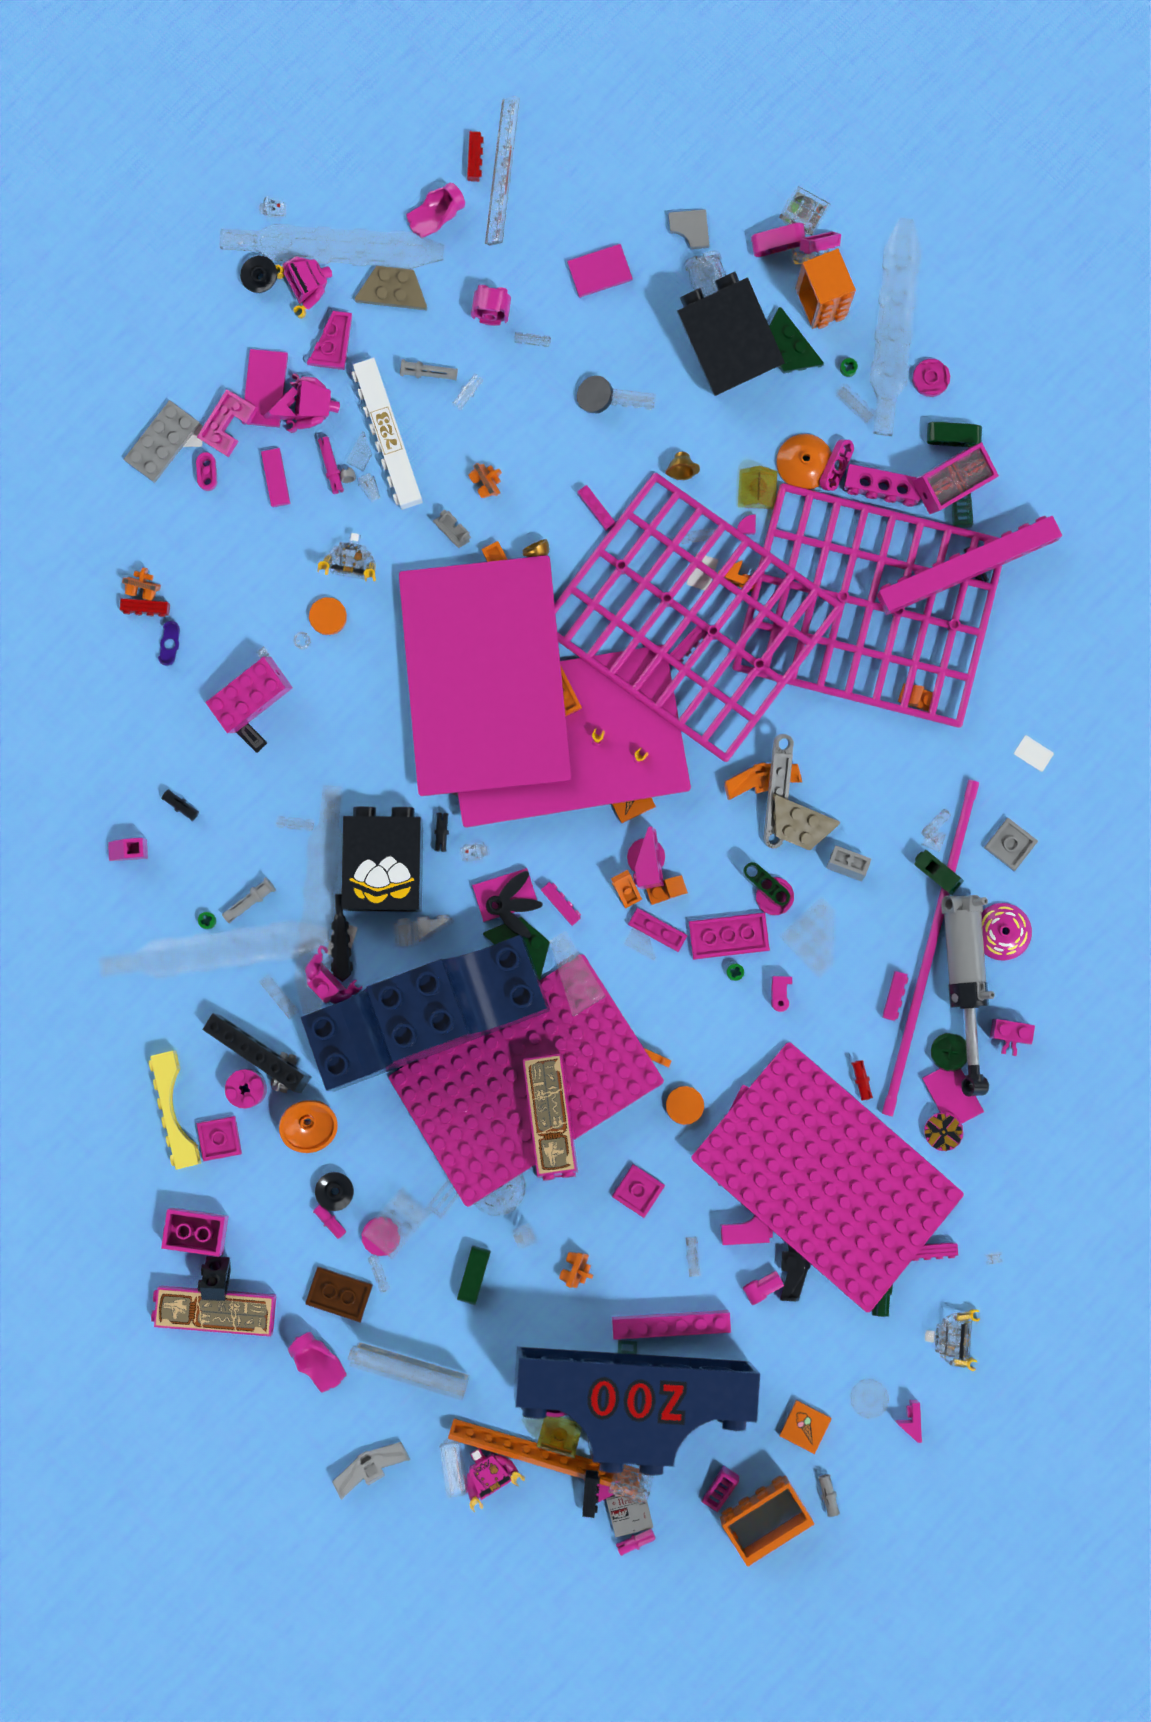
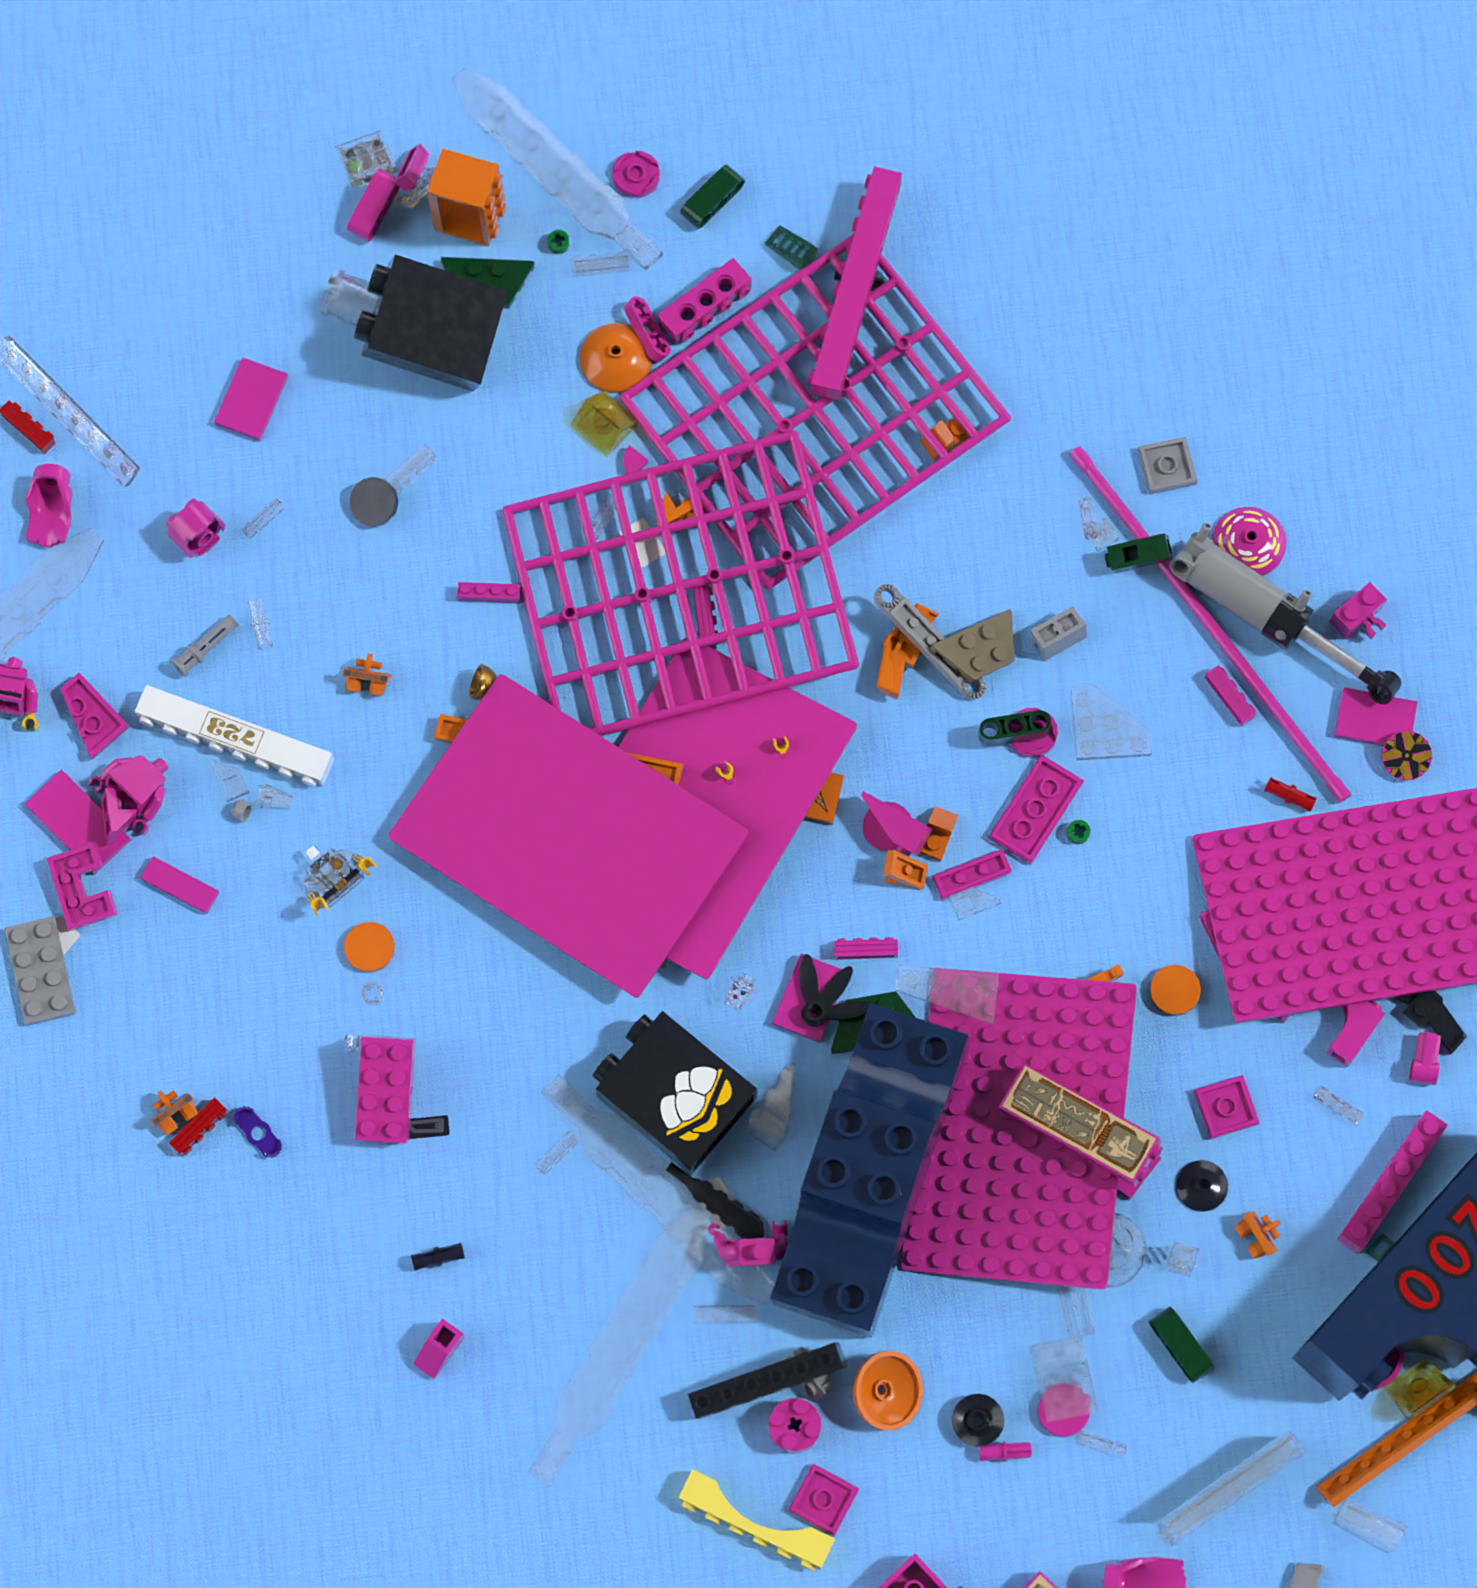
camera: 55 degrees left, 10 degrees down
(201, 918) = (589, 1322): green bush -> none
(206, 472) = (113, 949): dark pink plate -> none
(256, 895) = (599, 1253): light grey pin -> none
(333, 473) = (224, 822): dark pink pin -> none
(339, 1294) = (1090, 1504): reddish brown tile -> none
(392, 288) = (89, 613): dark tan wing -> none
(441, 832) = (691, 1010): black pin -> none
(457, 534) = (400, 748): light grey hinge -> none
(489, 1475) = (1406, 1494): dark pink torso -> none
(585, 1204) = (1196, 1197): none -> black dish
(682, 467) = (521, 476): pearl gold piece -> none
(691, 226) = (285, 277): light grey tile -> none
(779, 993) = (1135, 804): dark pink leg -> none
(949, 1052) = (1330, 687): dark green tile -> none
(955, 478) = (759, 227): brick -> none
(1033, 753) = (1093, 373): white sticker -> none

